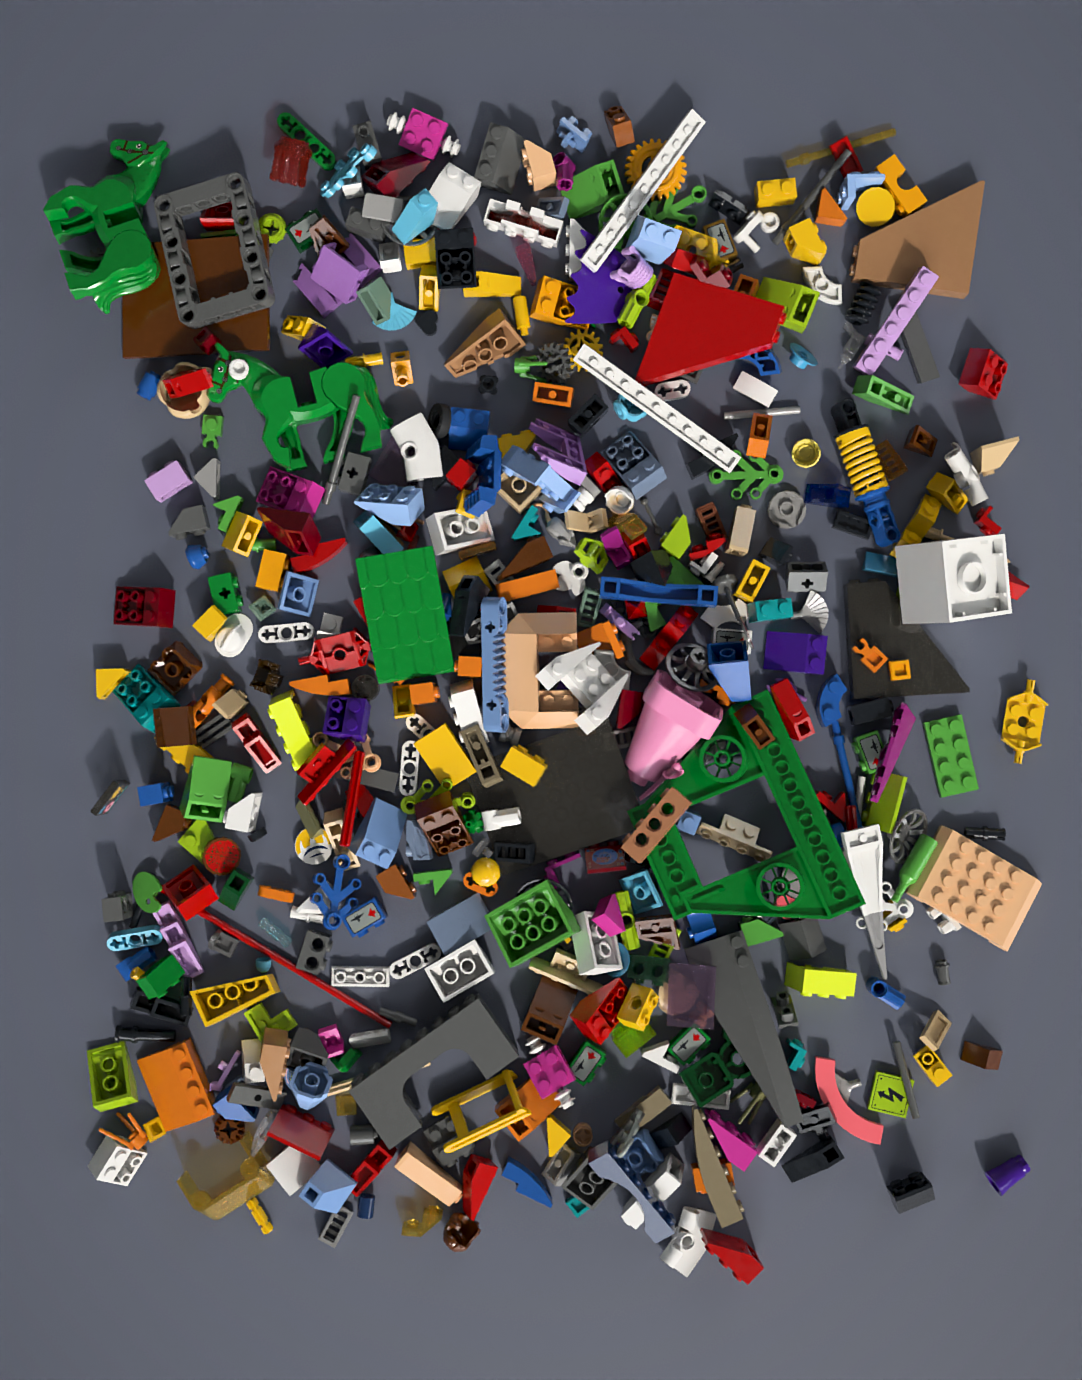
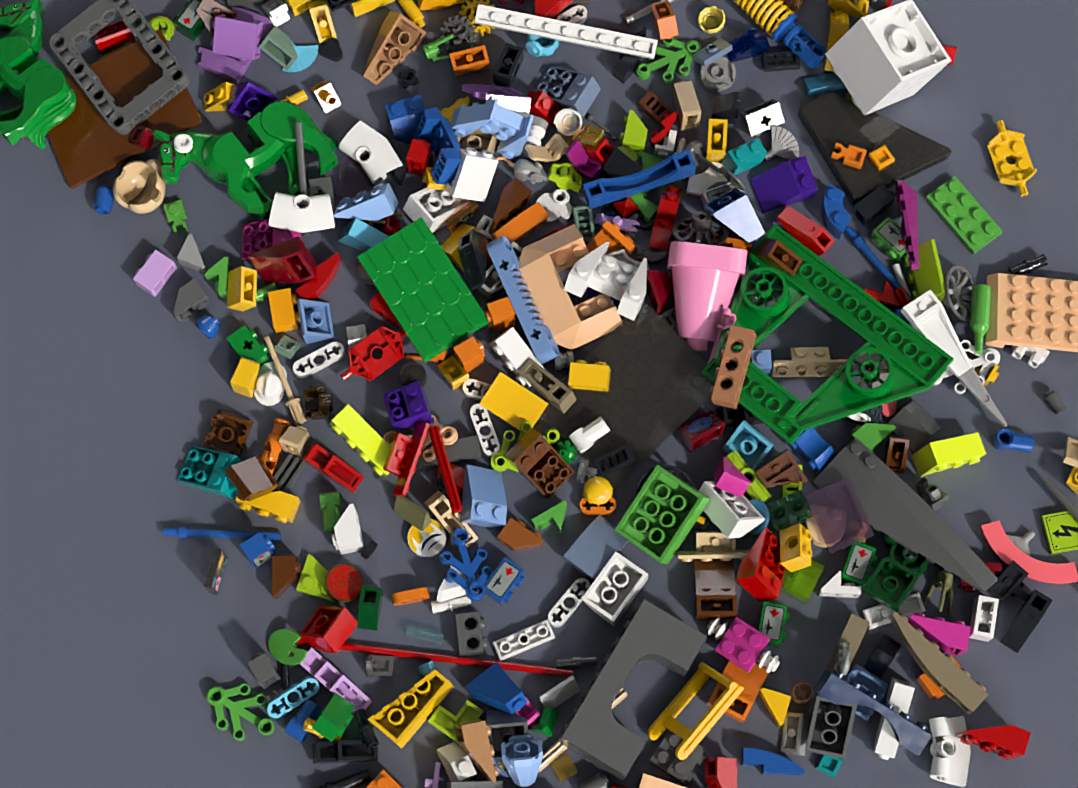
camera: 30 degrees left, 15 degrees down
(83, 927) = (237, 708): none -> bright green plant
(99, 743) = (183, 532): none -> blue bar
(108, 680) = (170, 468): yellow slope -> none
(144, 606) = (177, 391): dark red slope -> none
(188, 382) = (141, 174): red slope -> none
(206, 789) = (304, 523): bright green slope -> none
(245, 667) = (293, 404): none -> tan piece
(316, 1014) = (497, 690): none -> blue slope
(323, 686) = (371, 391): orange slope -> none
(335, 495) = (314, 217): none -> white panel
(417, 842) = (523, 487): sand blue slope -> none
(440, 419) = (384, 117): black tyre -> none
(502, 519) = (473, 175): none -> white panel
(524, 530) = (498, 180): teal slope -> none
(549, 869) = (657, 456): magenta bracket -> none
(772, 958) = (896, 453): none -> reddish brown slope
(791, 487) = (712, 52): none -> sand blue plate
(796, 1058) = (963, 528): teal bracket -> none

